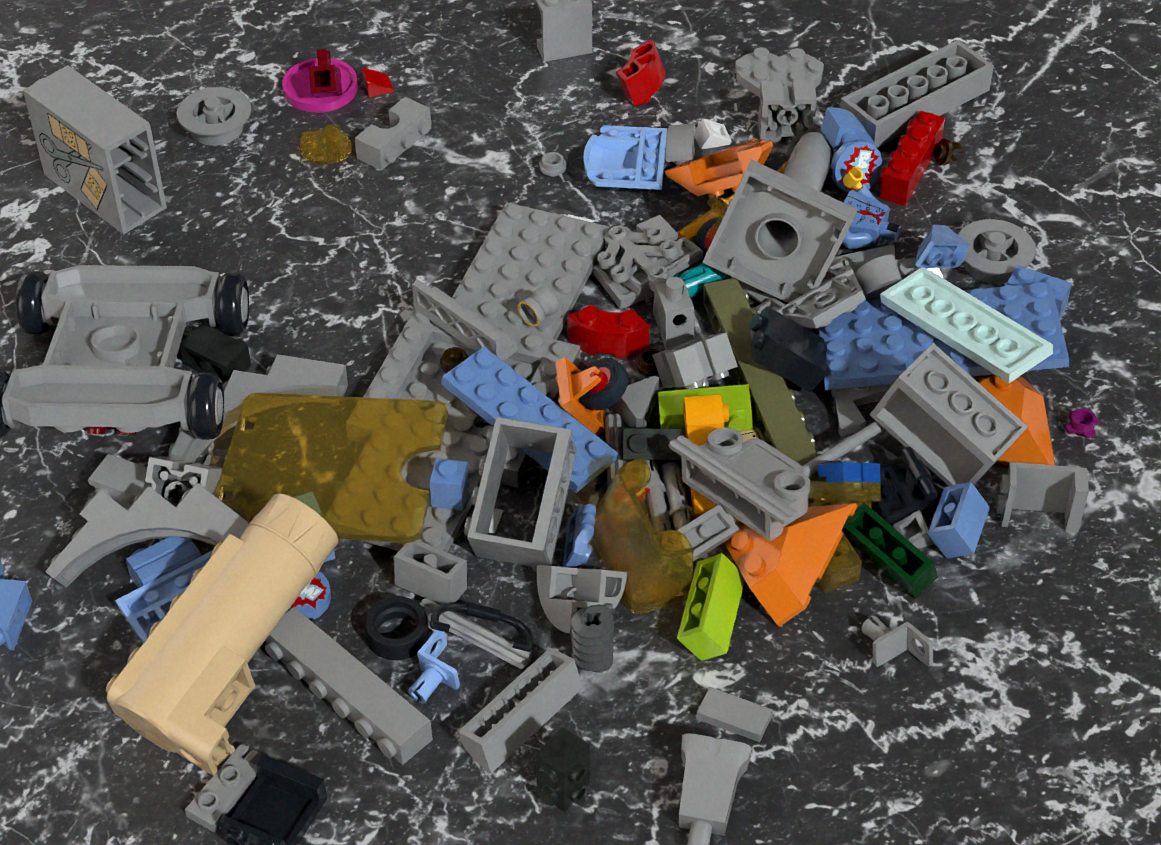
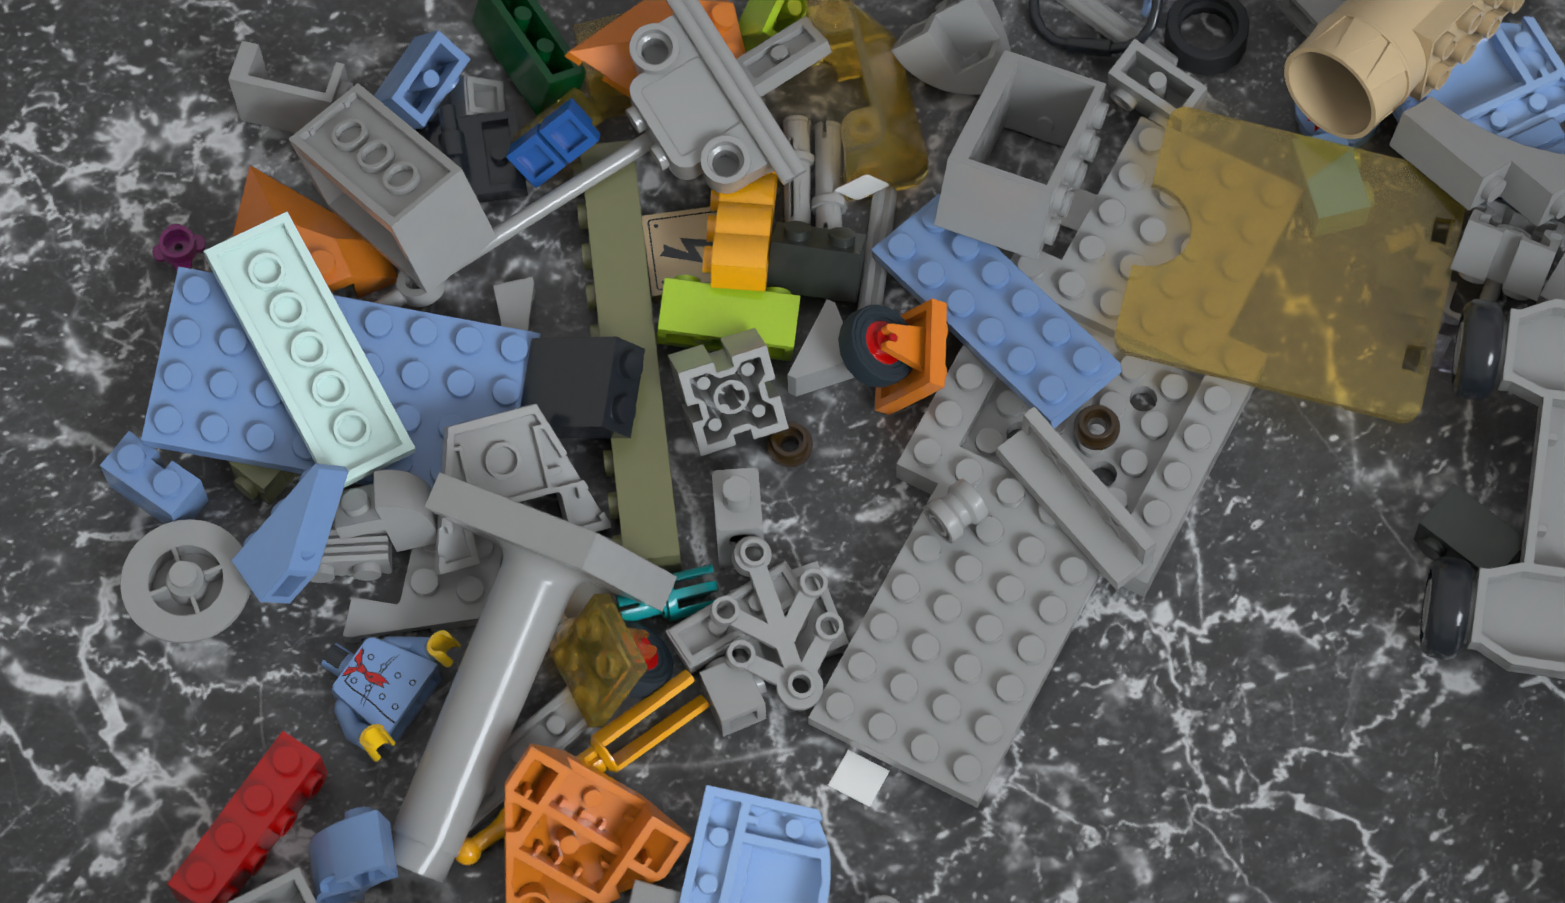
camera: 170 degrees left, 20 degrees up
(285, 376) = (1357, 465): light grey arch -> none
(449, 484) = (1123, 186): medium blue brick -> none
(578, 534) = (945, 120): medium blue hinge -> none
(608, 332) = (847, 494): red brick -> none
(860, 155) = (364, 796): tile -> none
(945, 151) = (180, 841): dark brown plate -> none

